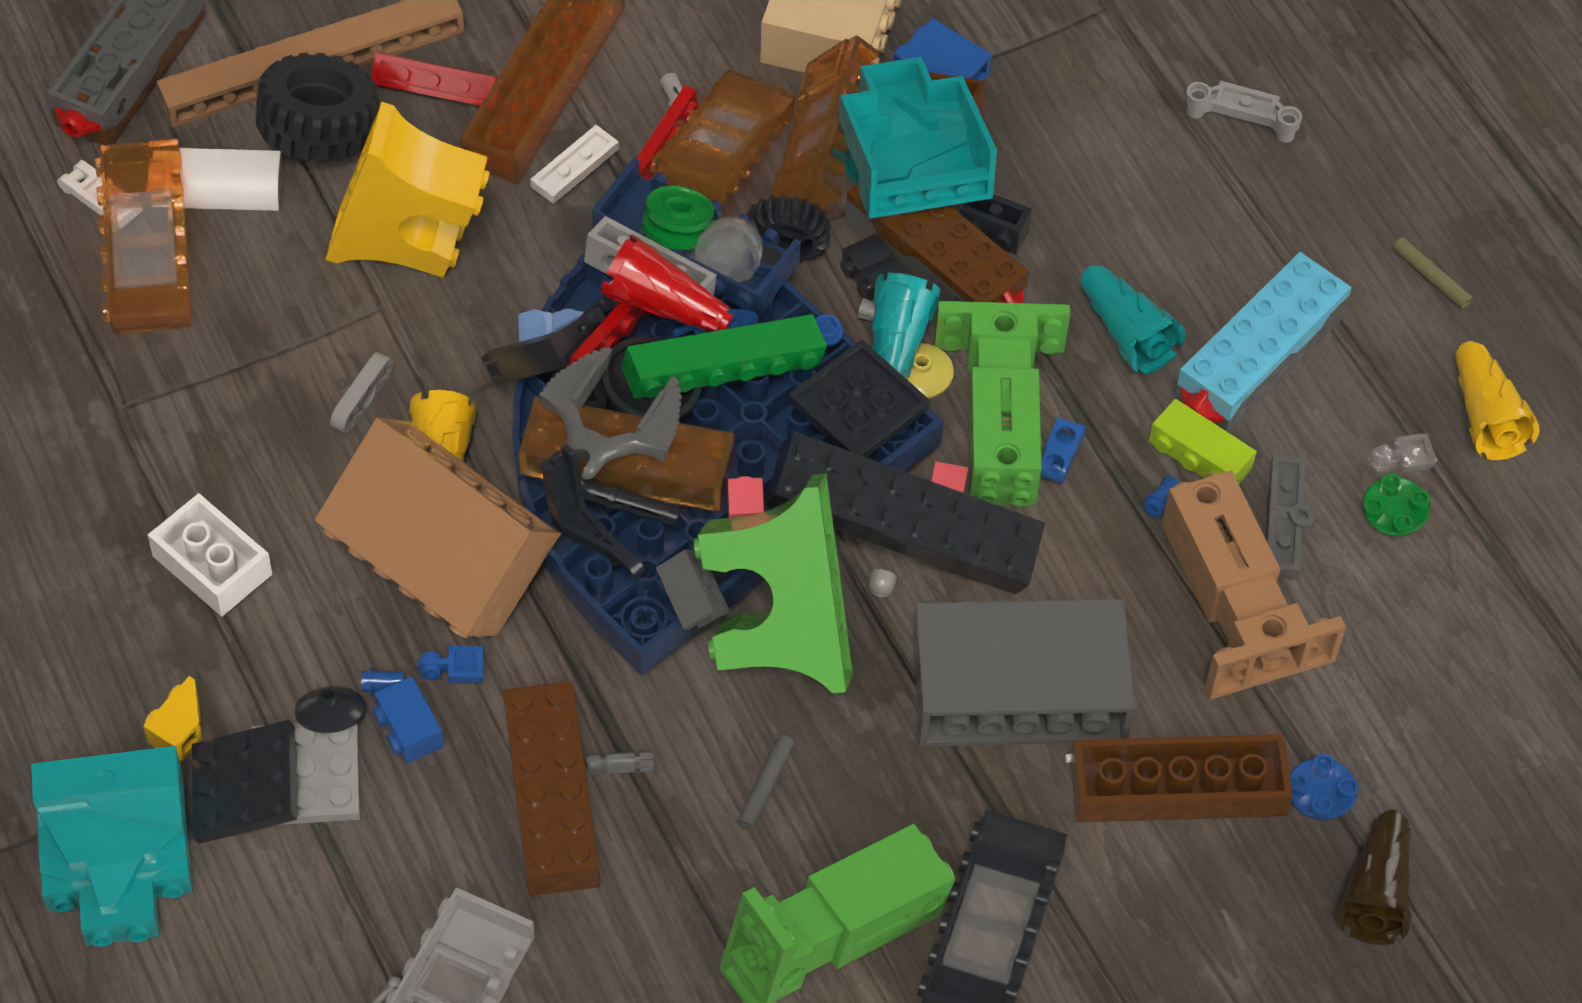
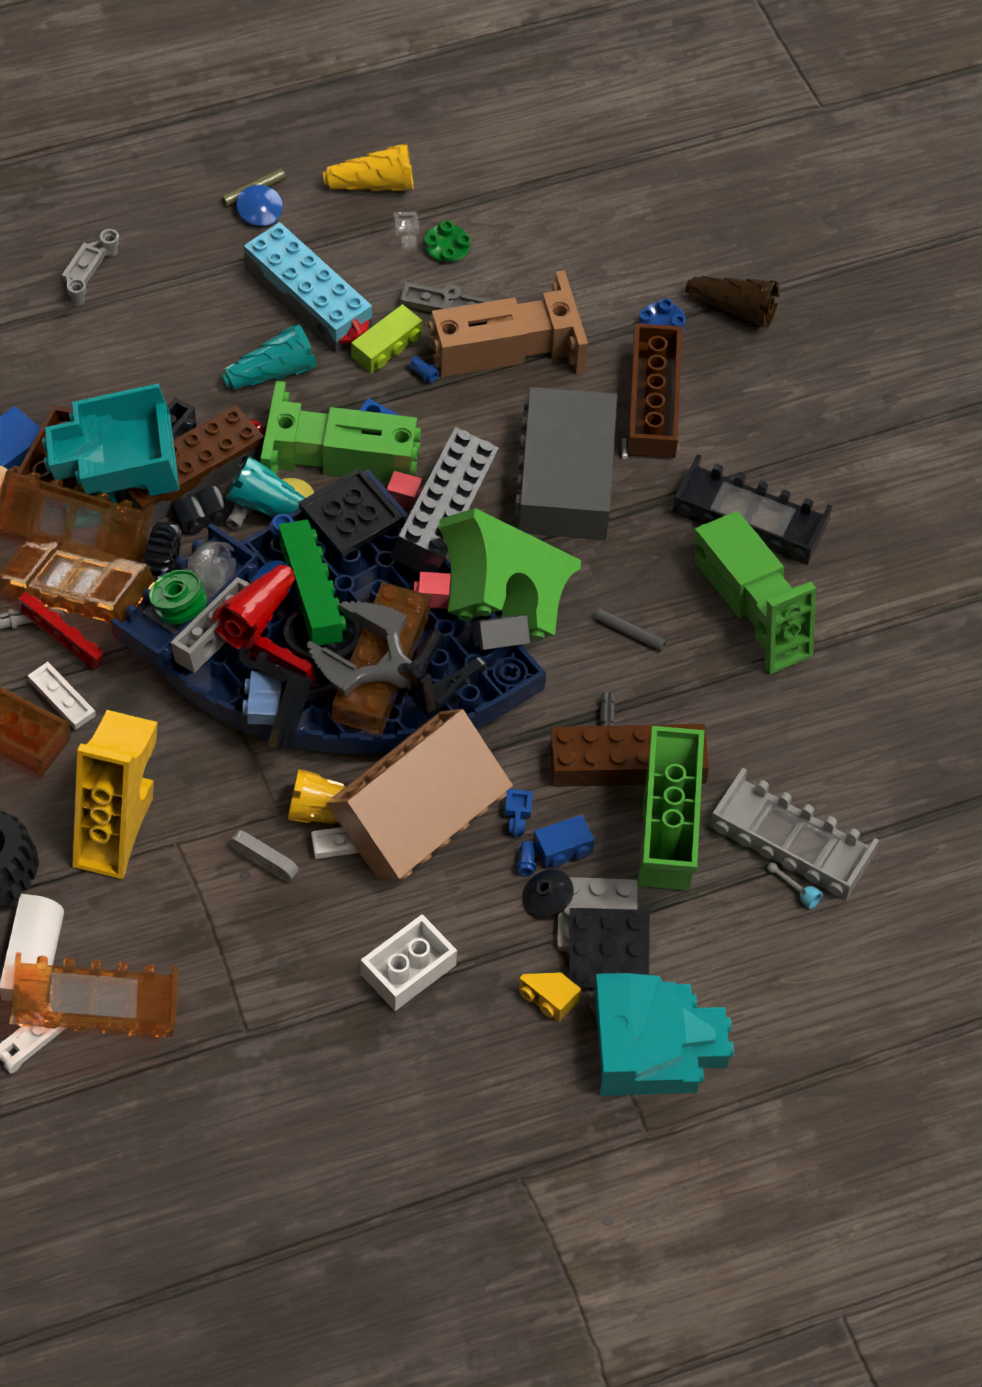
camera: 85 degrees left, 0 degrees up
(416, 803) = (671, 808): none -> bright green piece
(1398, 279) = (259, 205): none -> blue dish

